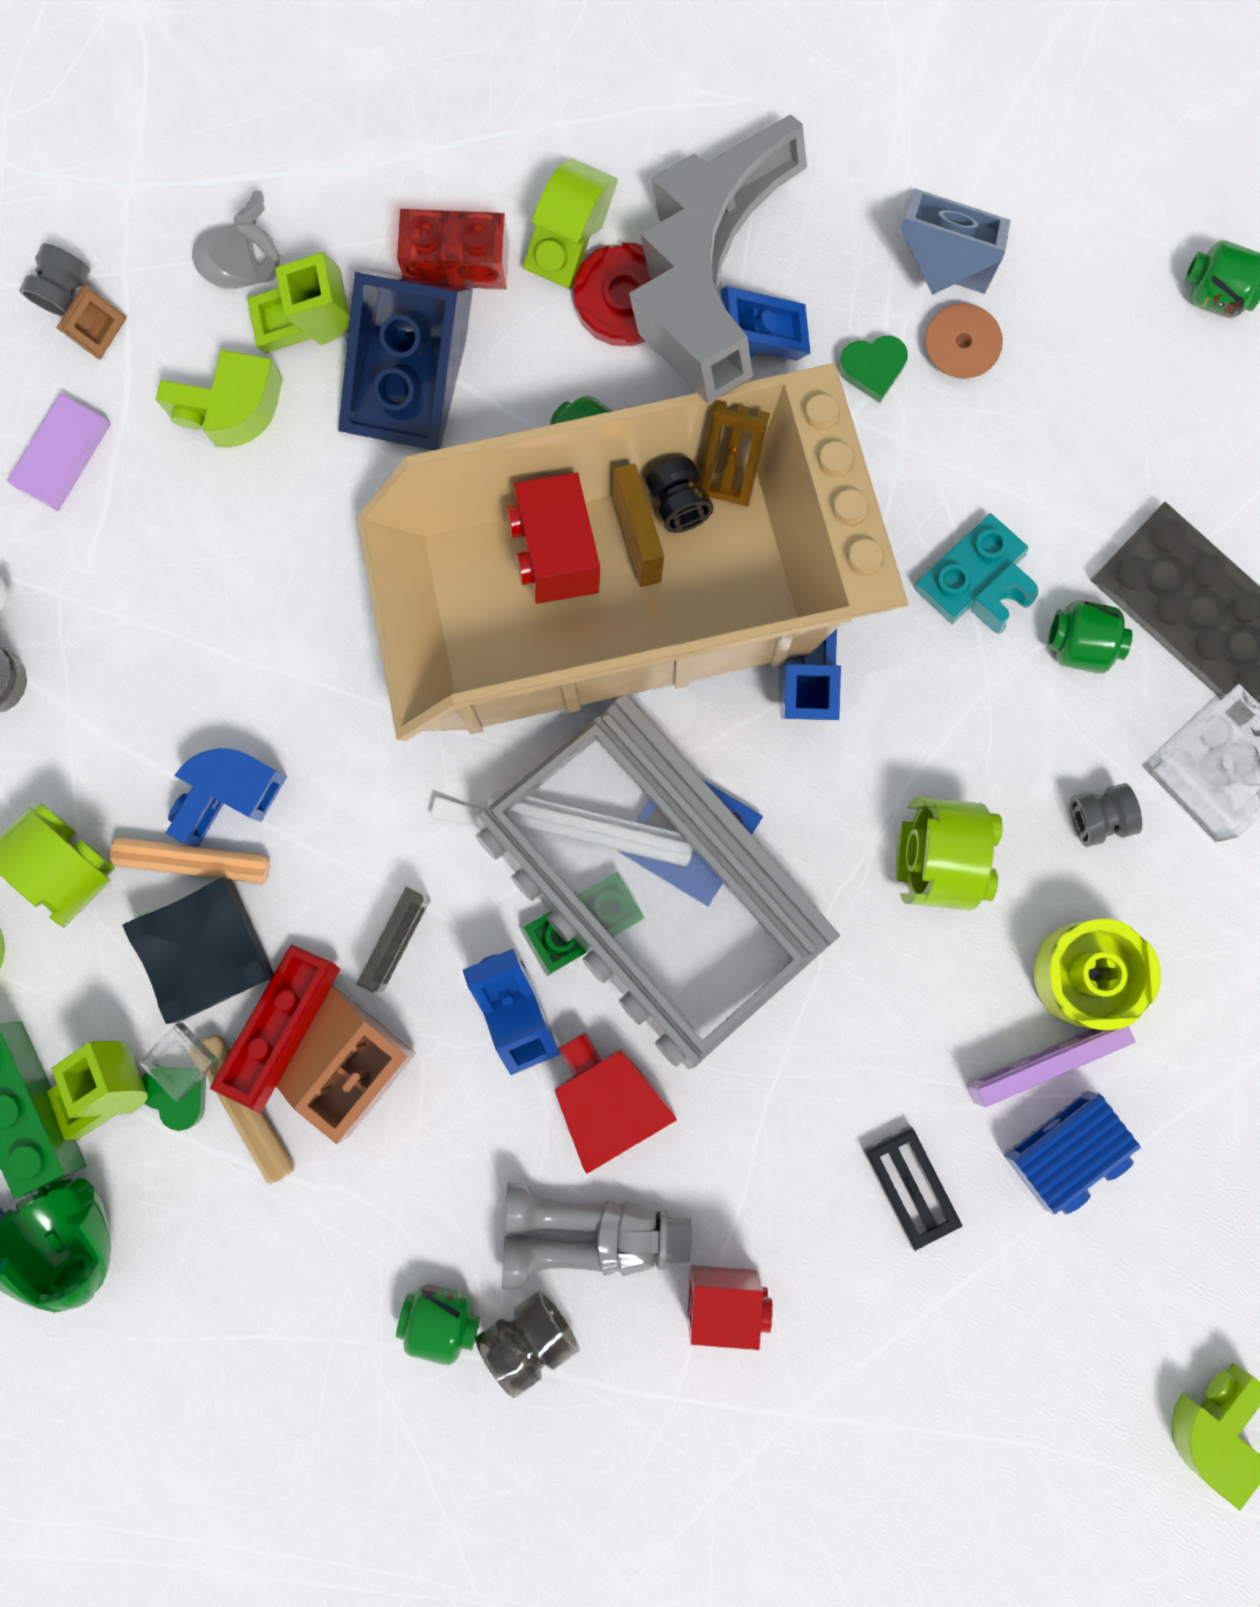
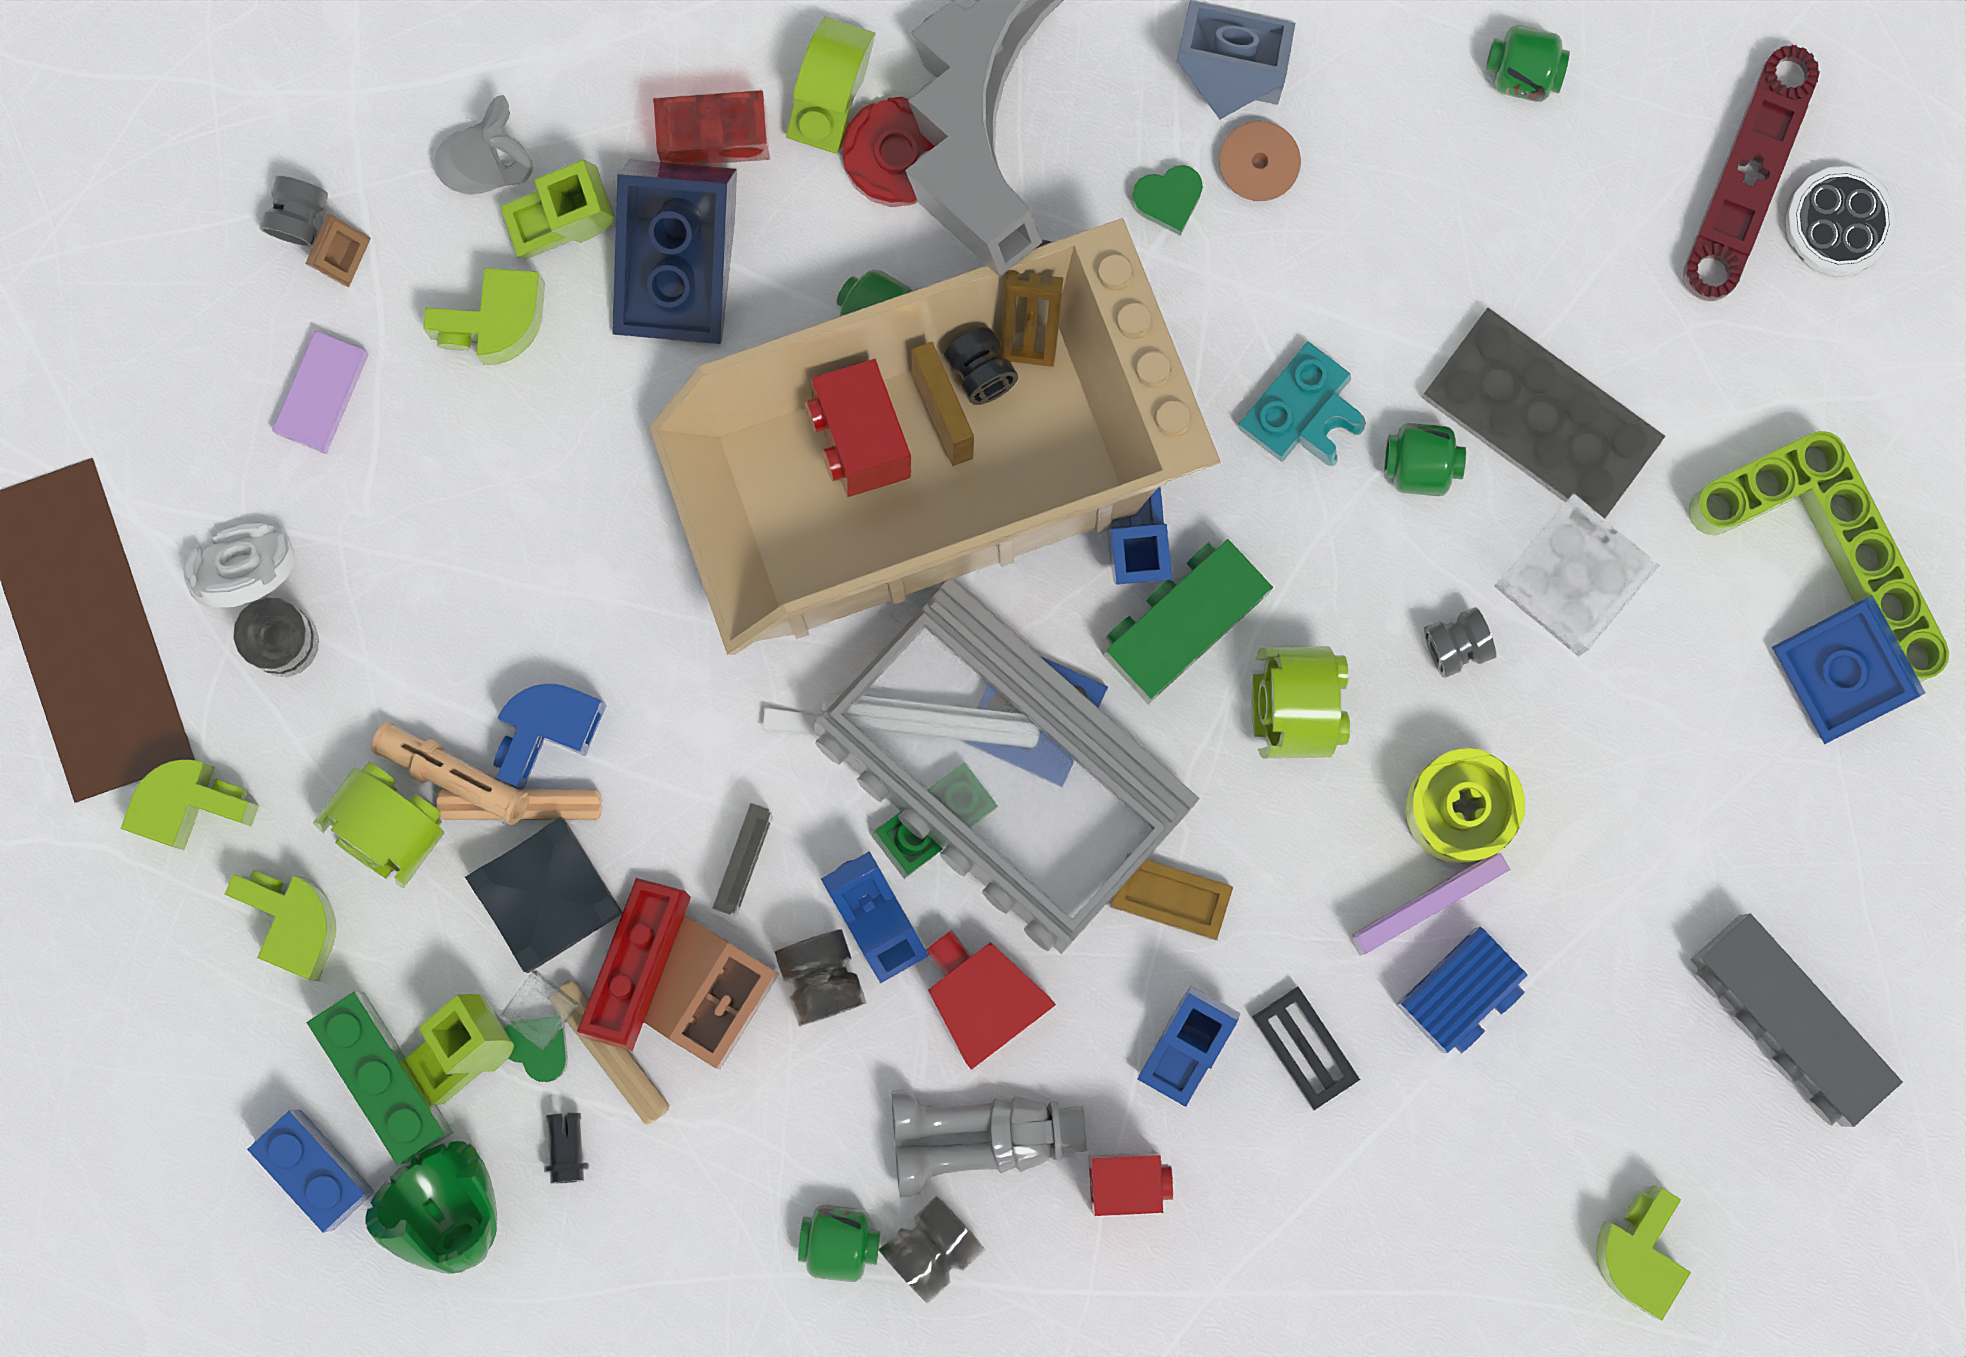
camera: 10 degrees left, 0 degrees up
(84, 791) = (430, 763): none -> light nougat pin
(187, 1202) = (565, 1152): none -> black pin
(453, 1064) = (820, 977): none -> clear smoke wheel
(771, 323) = (1049, 171): blue slope -> none
(802, 1173) = (1188, 1045): none -> blue brick
(805, 1028) = (1175, 899): none -> pearl gold tile
(845, 760) = (1185, 619): none -> green brick

